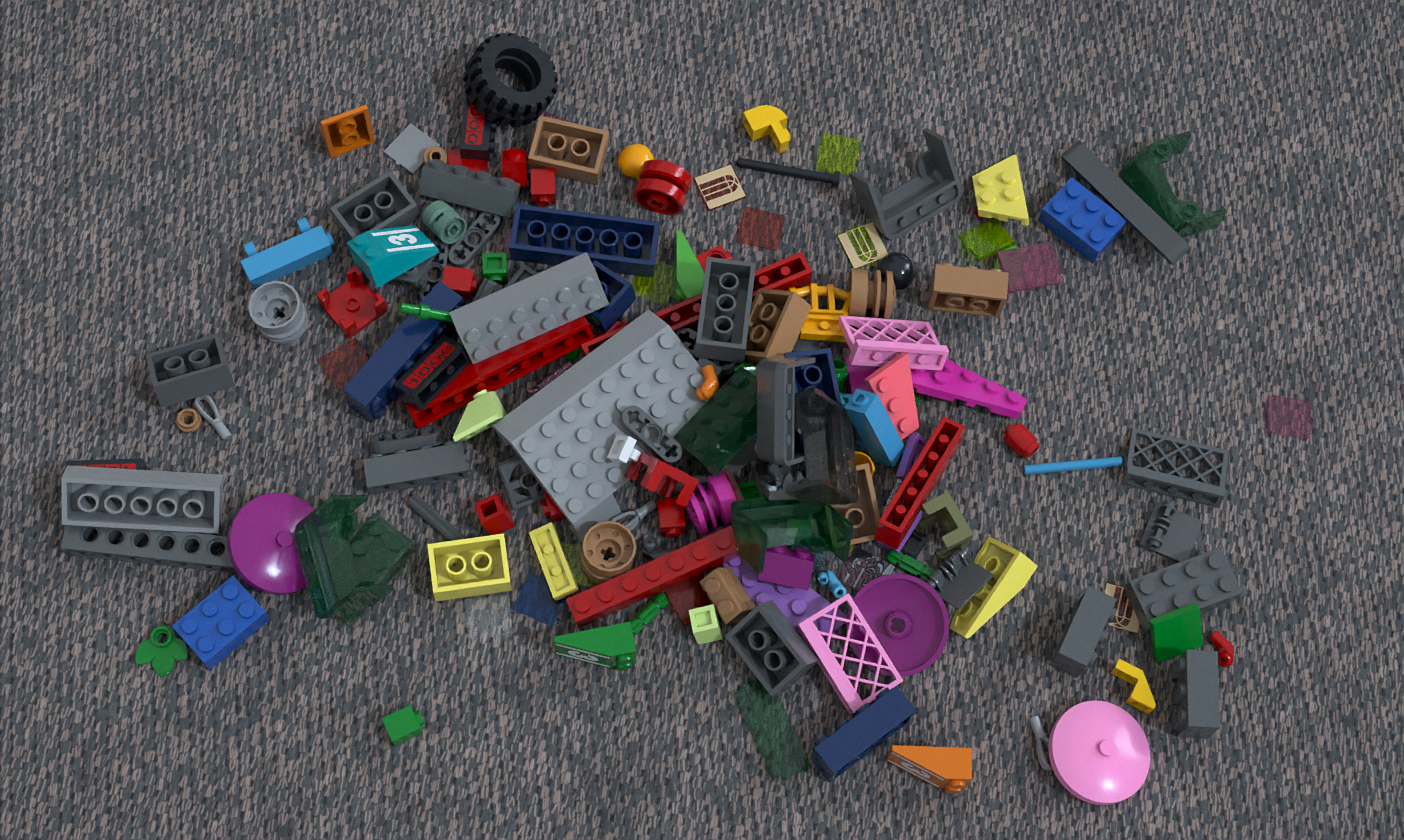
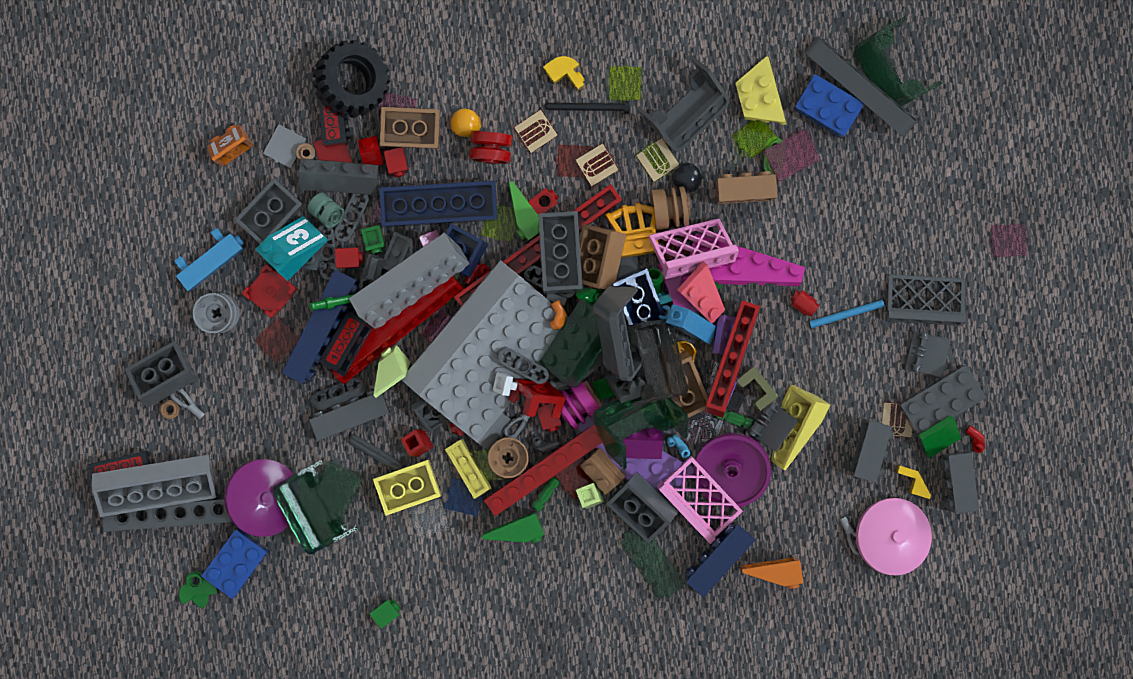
camera: 10 degrees left, 20 degrees up
(787, 236) = (596, 165): none -> piece

